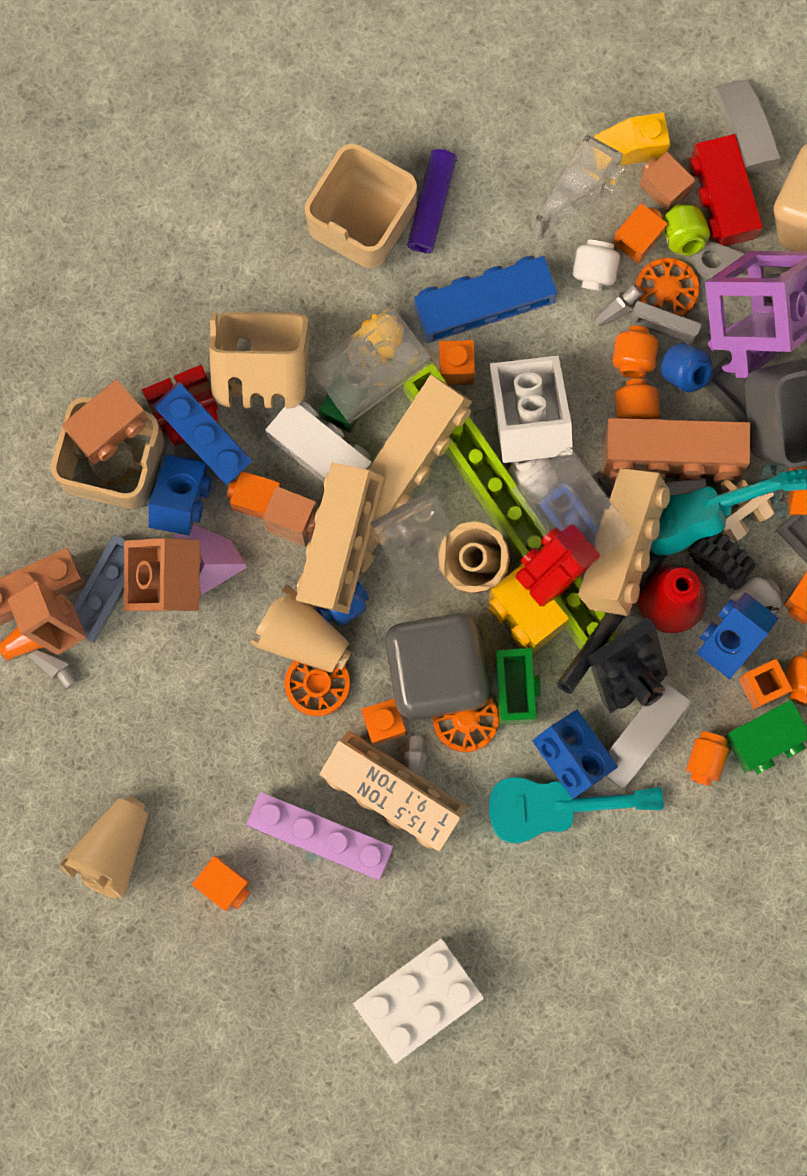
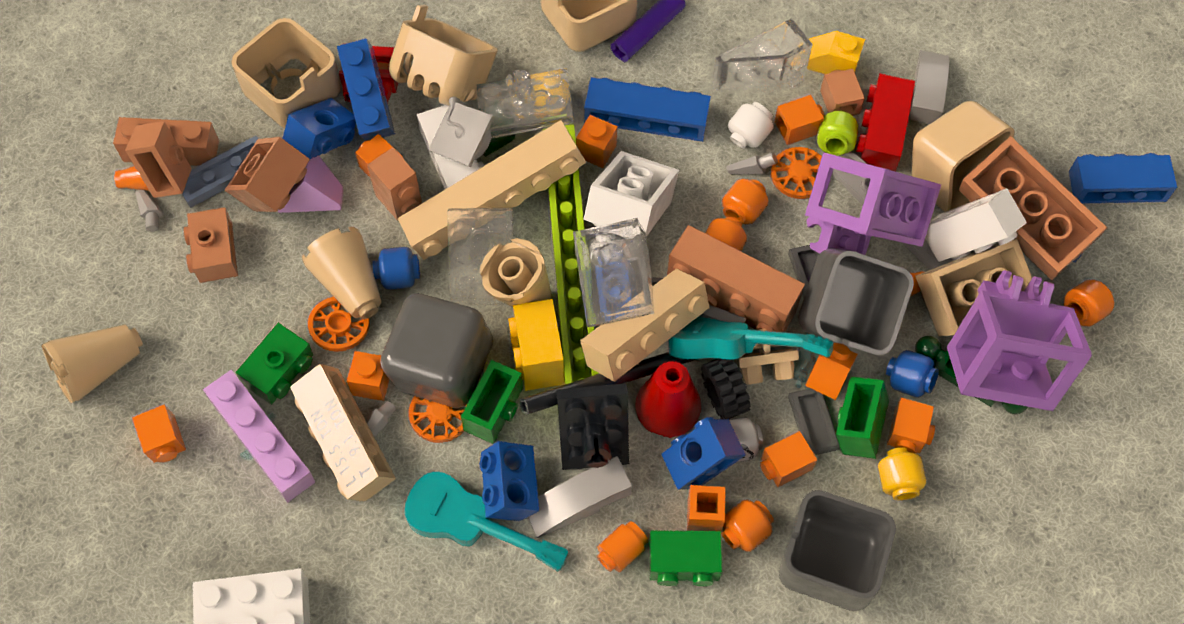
camera: 25 degrees right, 15 degrees down
(106, 422) = (292, 37): nougat brick -> none
(145, 672) = (211, 245): none -> nougat brick
(287, 757) = (275, 364): none -> green brick
(332, 433) = (462, 133): none -> hat
(339, 538) = (417, 209): tan brick -> none
(557, 564) = (574, 304): red brick -> none
(665, 323) = (783, 192): light grey tile -> none
(686, 367) = (780, 231): blue head -> none

